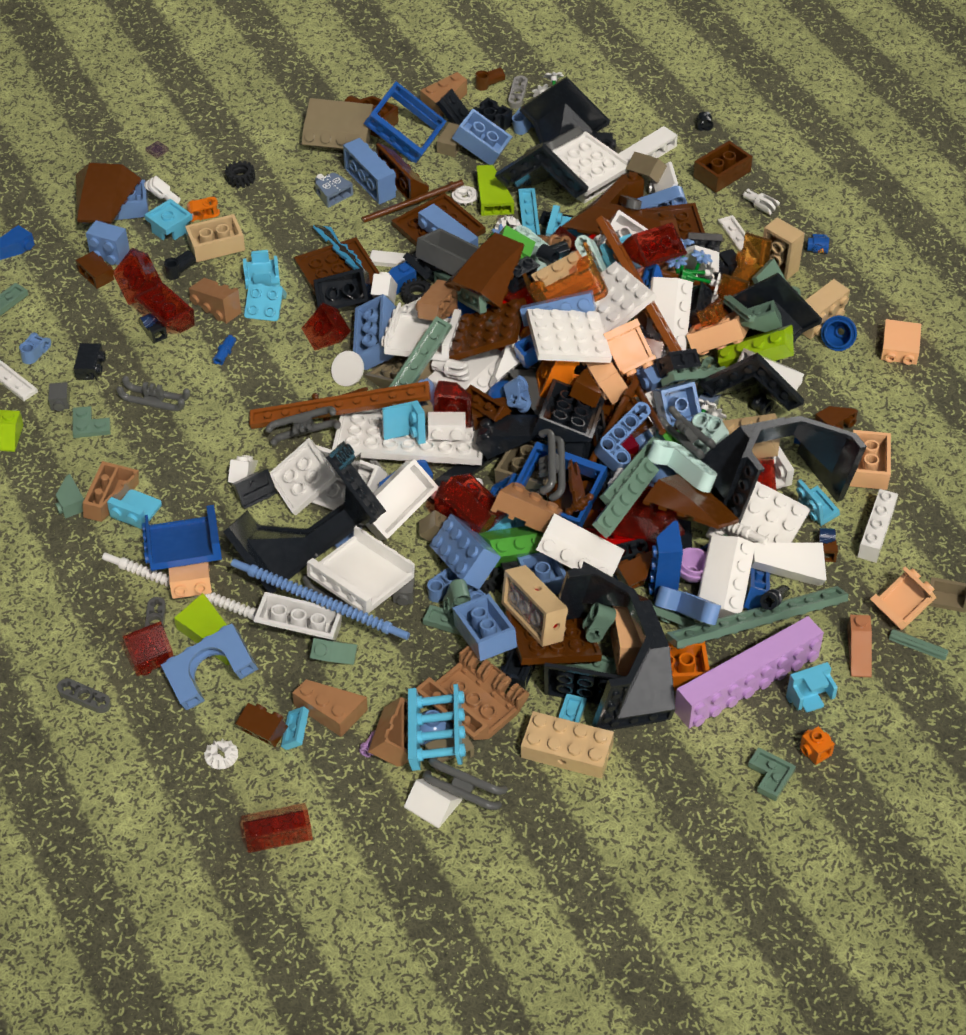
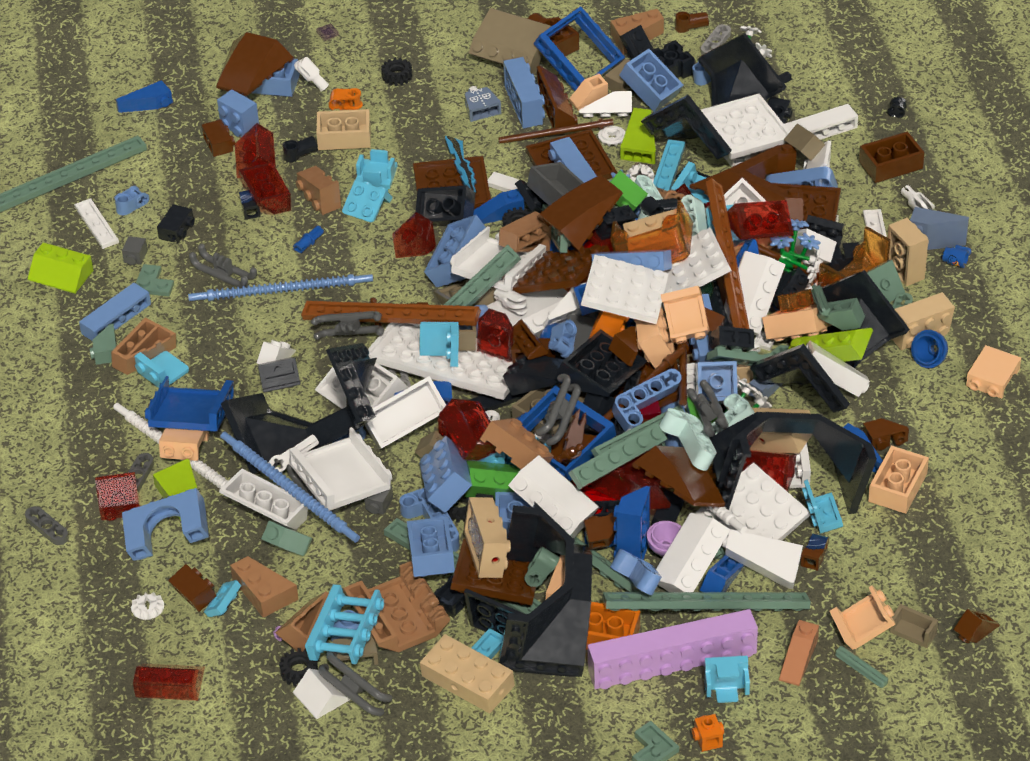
camera: 20 degrees right, 5 degrees down
(64, 461) = (115, 311): none -> medium blue brick
(152, 424) = (211, 294): none -> medium blue hose
(168, 219) = (306, 102): medium azure panel -> none
(300, 568) = (303, 446): none -> white connector
(302, 476) = (318, 376): white plate -> none
(347, 368) = (416, 281): white piece -> none
(384, 284) = (483, 208): white brick -> none
(393, 771) = (292, 659): none -> black tyre
(429, 159) = (589, 91): none -> light nougat slope
(446, 426) = (483, 354): white brick -> none
(456, 595) = (421, 509): sand green piece -> none
(457, 164) = (616, 102): none -> white slope
(562, 139) = (731, 96): dark grey beam -> none
(630, 202) = (768, 174): dark grey beam -> none
(762, 404) = (815, 403): black wheel -> none
(774, 597) = (728, 585): black pin -> none
(801, 217) = (941, 227): none -> sand blue slope
(877, 525) = (875, 544): white brick -> none

